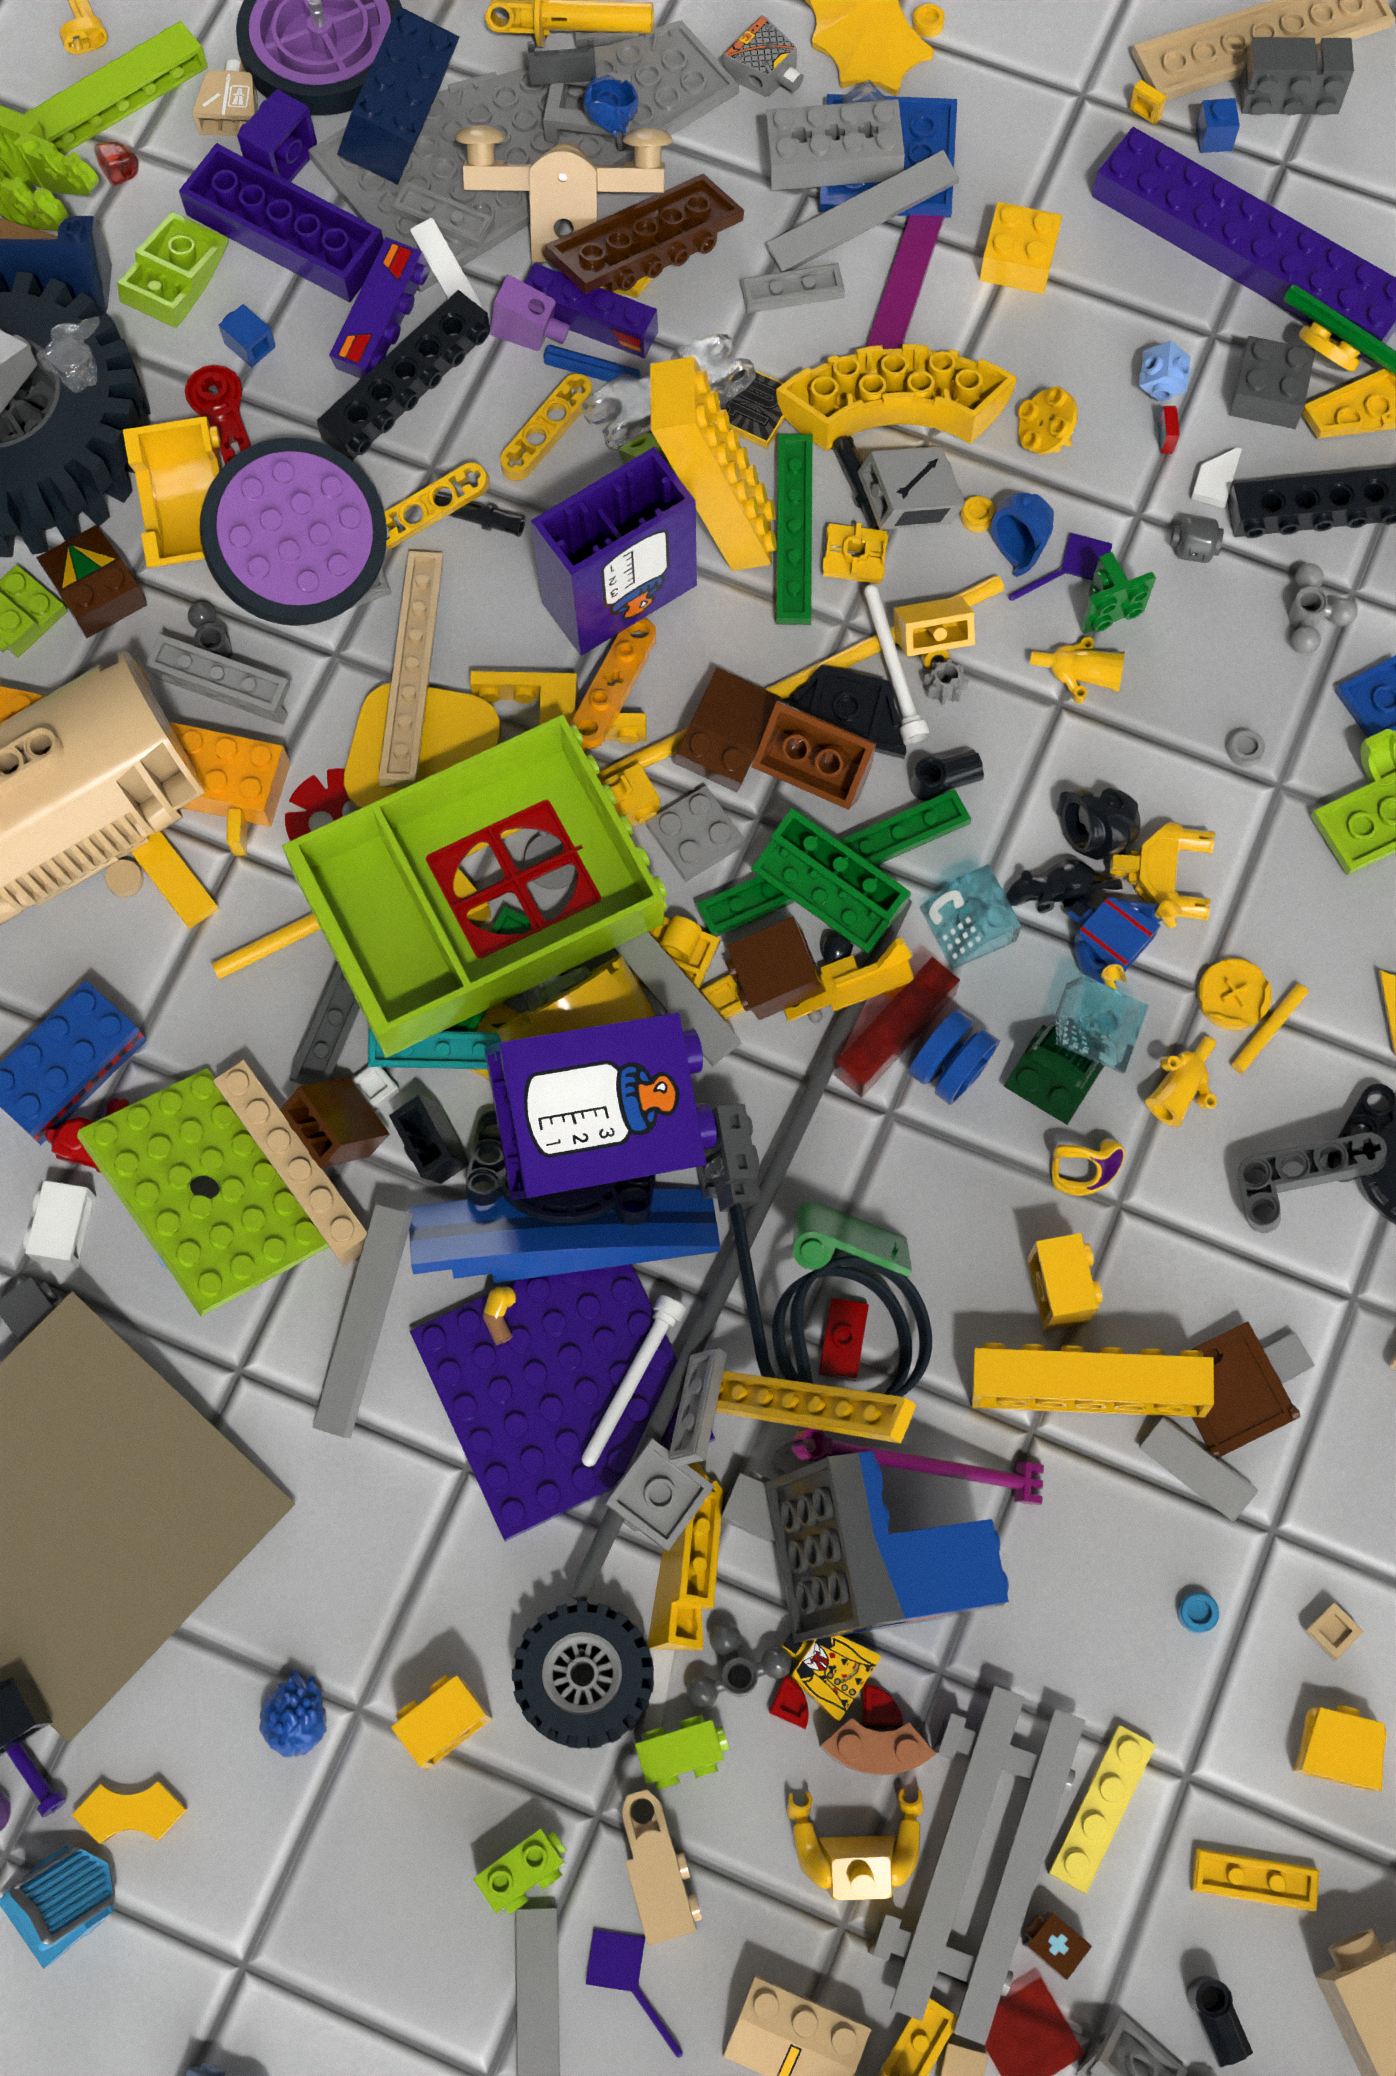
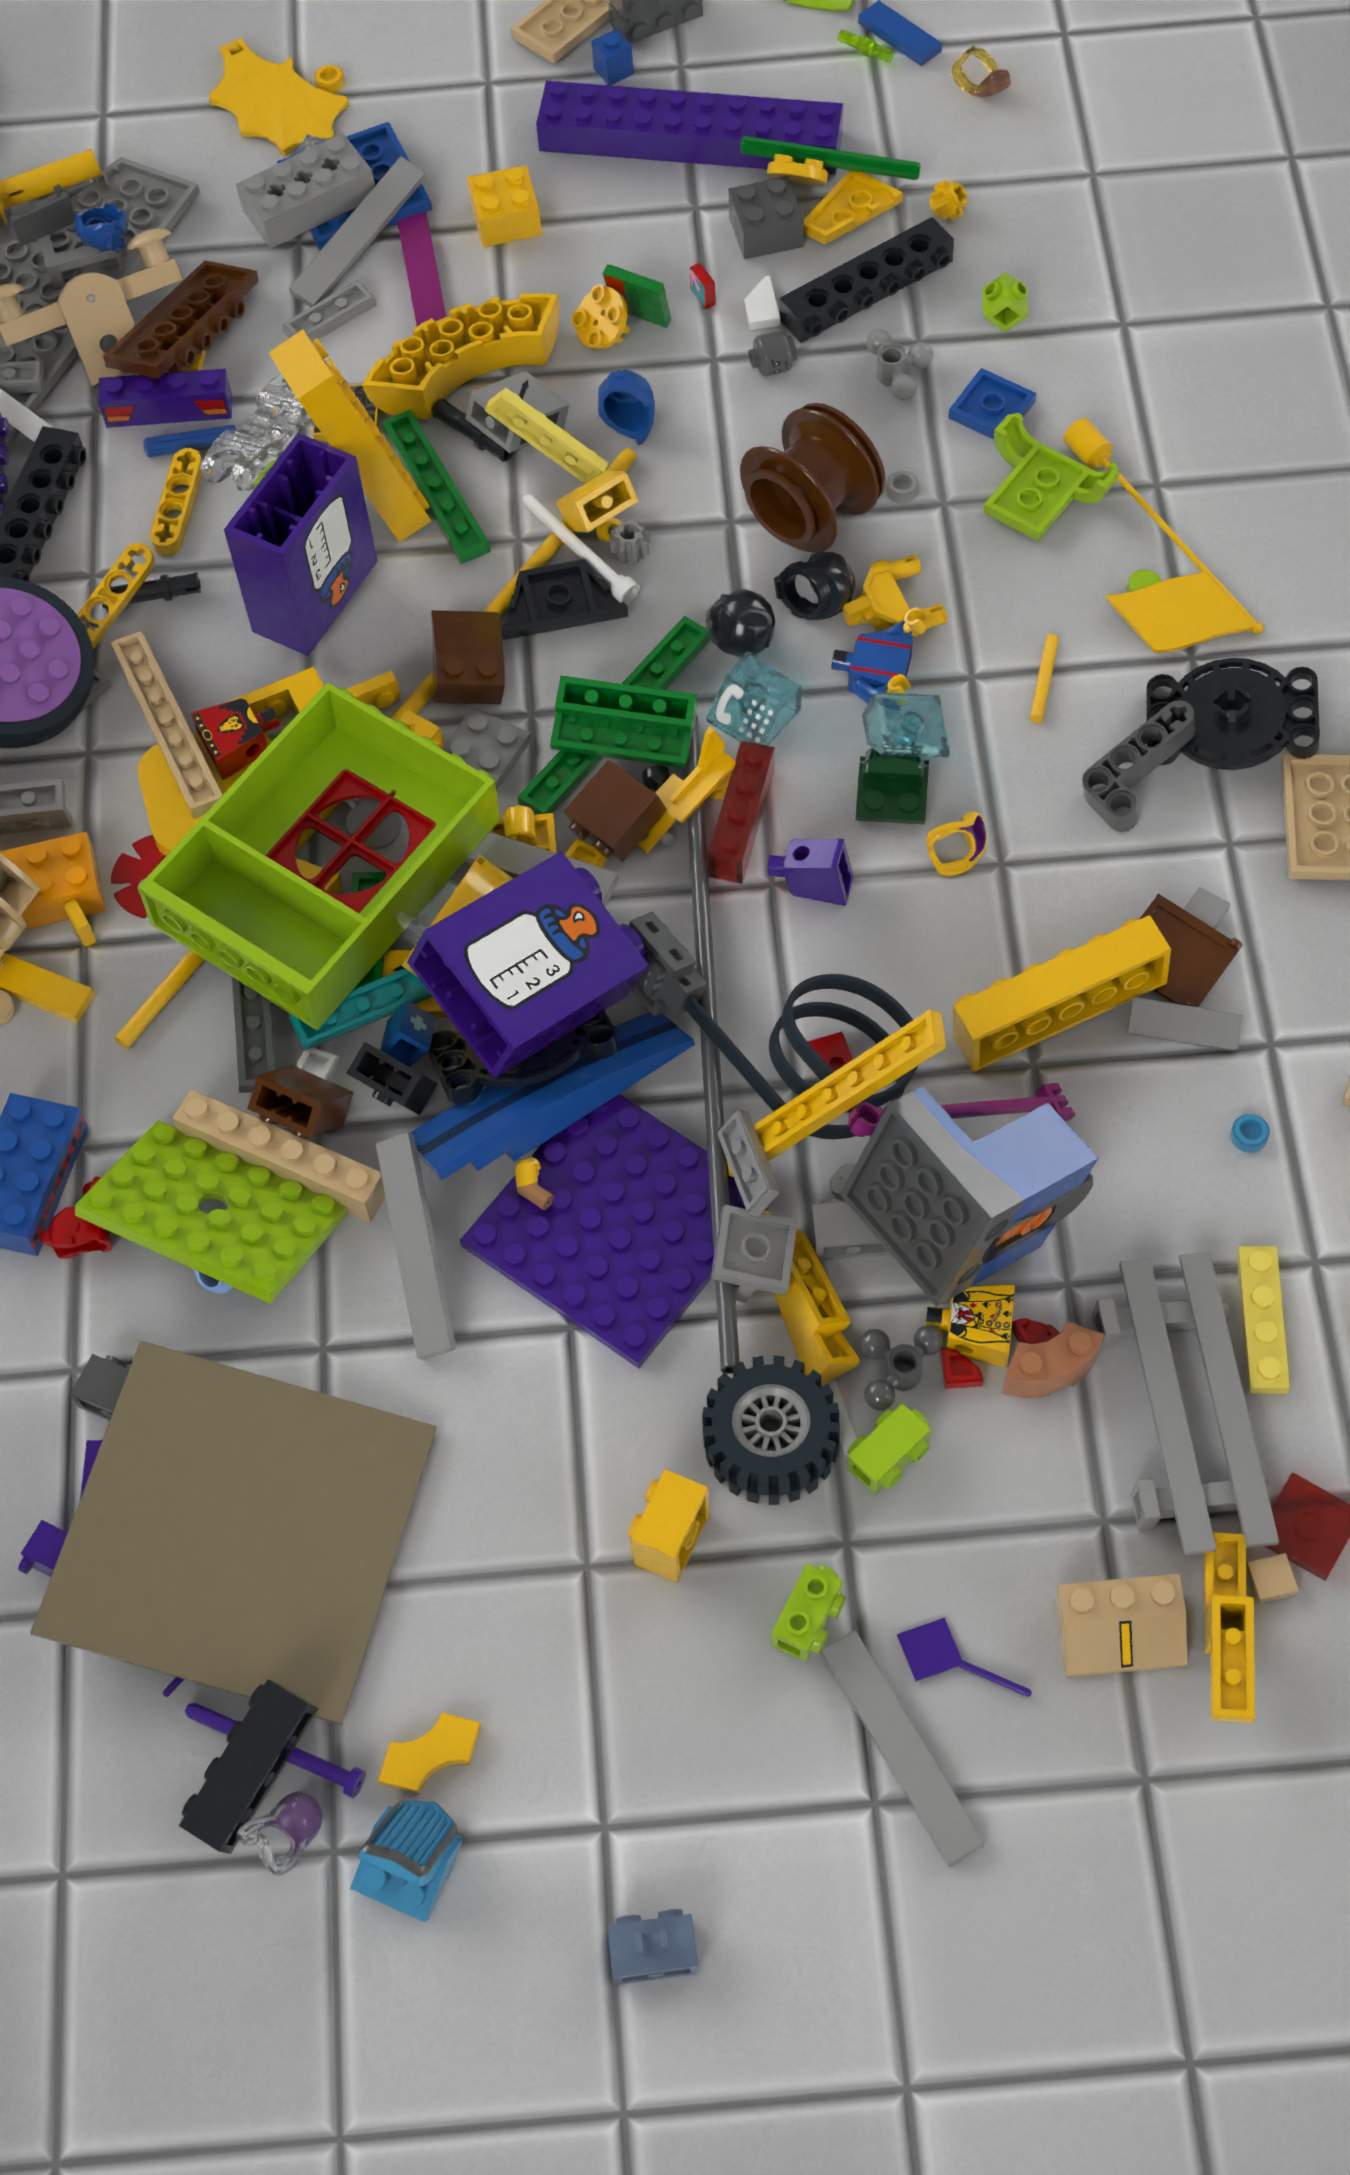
camera: 25 degrees left, 10 degrees down
(59, 1224) = (93, 1305): white piece -> none
(293, 1716) = (534, 1597): blue hair -> none
(464, 712) = (233, 734): none -> red torso
(466, 1102) = (408, 1034): none -> blue brick
(525, 316) = (113, 423): medium lavender torso -> none
(622, 664) = (348, 644): light orange piece -> none
(658, 1875) = (927, 1548): tan brick -> none
(666, 1315) = (677, 1113): white piece -> none
(763, 59) = (208, 157): light grey torso -> none
(815, 755) = (554, 634): dark orange slope -> none
(822, 1229) = (780, 977): green door -> none
(842, 565) = (497, 482): yellow piece -> none
(858, 1864) = (1086, 1459): yellow torso -> none
(924, 543) = (545, 435): none -> light yellow plate
(931, 1126) = (815, 869): none -> dark purple torso
(948, 773) = (665, 611): black piece -> none
(951, 1055) = (797, 806): blue wheel -> none
(977, 513) = (582, 412): yellow tile -> none
(1001, 827) = (741, 623): none -> black helmet
(1055, 1944) = (1289, 1437): reddish brown brick -> none
(1061, 883) = (814, 647): black animal -> none
(1064, 1281) = (993, 931): yellow brick -> none
(1079, 560) = (686, 409): dark purple piece -> none
(1084, 665) = (723, 487): yellow piece -> none
(1096, 414) = (643, 295): none -> green tile
(1114, 596) = (731, 416): green bracket -> none
(1147, 102) = (546, 63): yellow tile -> none
(1150, 709) = (823, 469): none -> reddish brown wheel
(1164, 371) = (674, 244): light blue brick -> none
(1181, 1084) = (998, 752): yellow piece -> none
(1234, 994) = (1001, 667): yellow tile -> none

